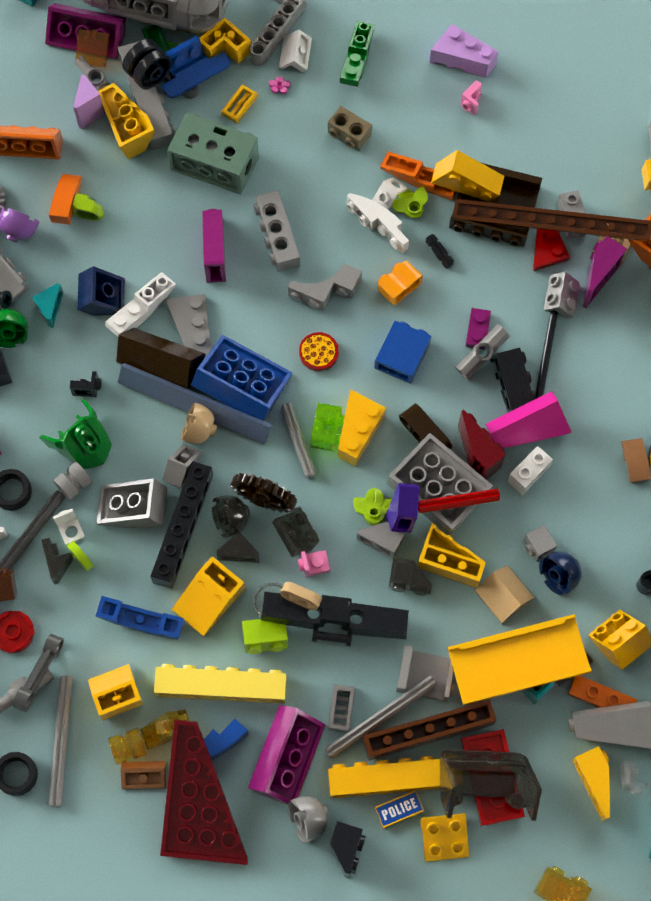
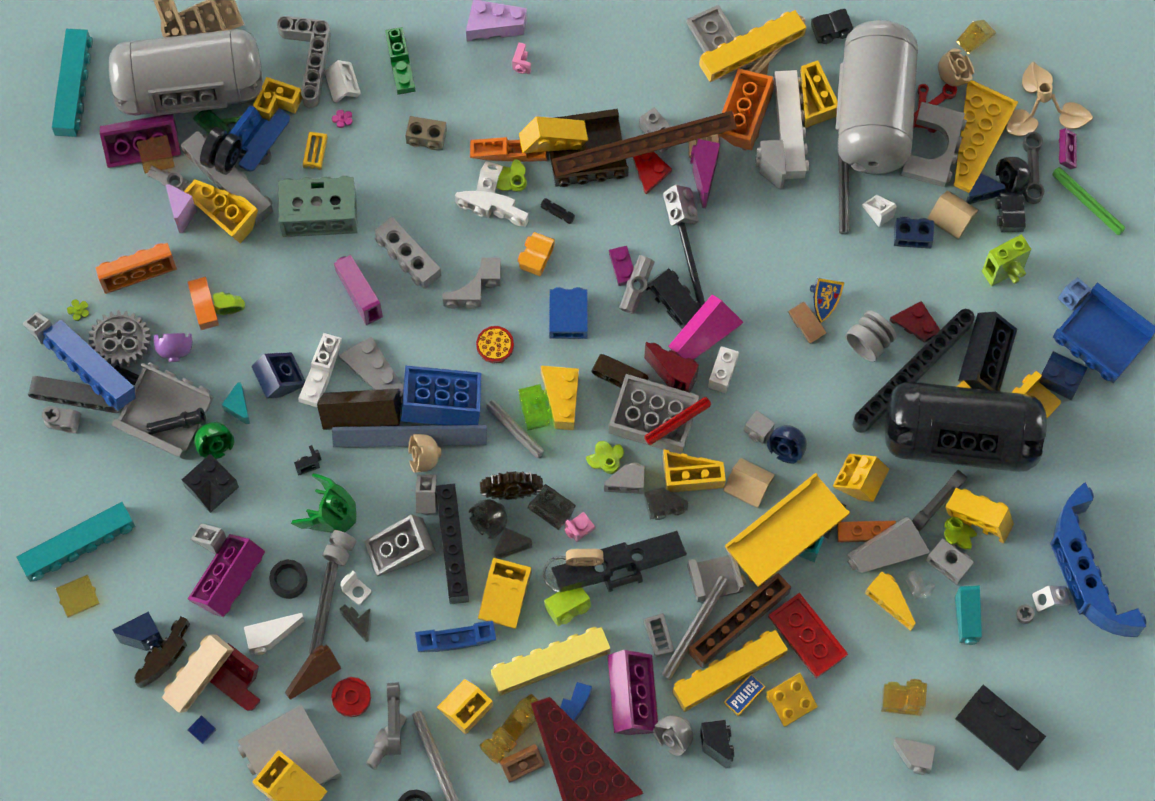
camera: 25 degrees left, 0 degrees up
(80, 556) = (379, 608): lime piece -> none
(403, 508) = (634, 447): dark purple slope -> none
(488, 776) = (806, 633): clear smoke windscreen -> none

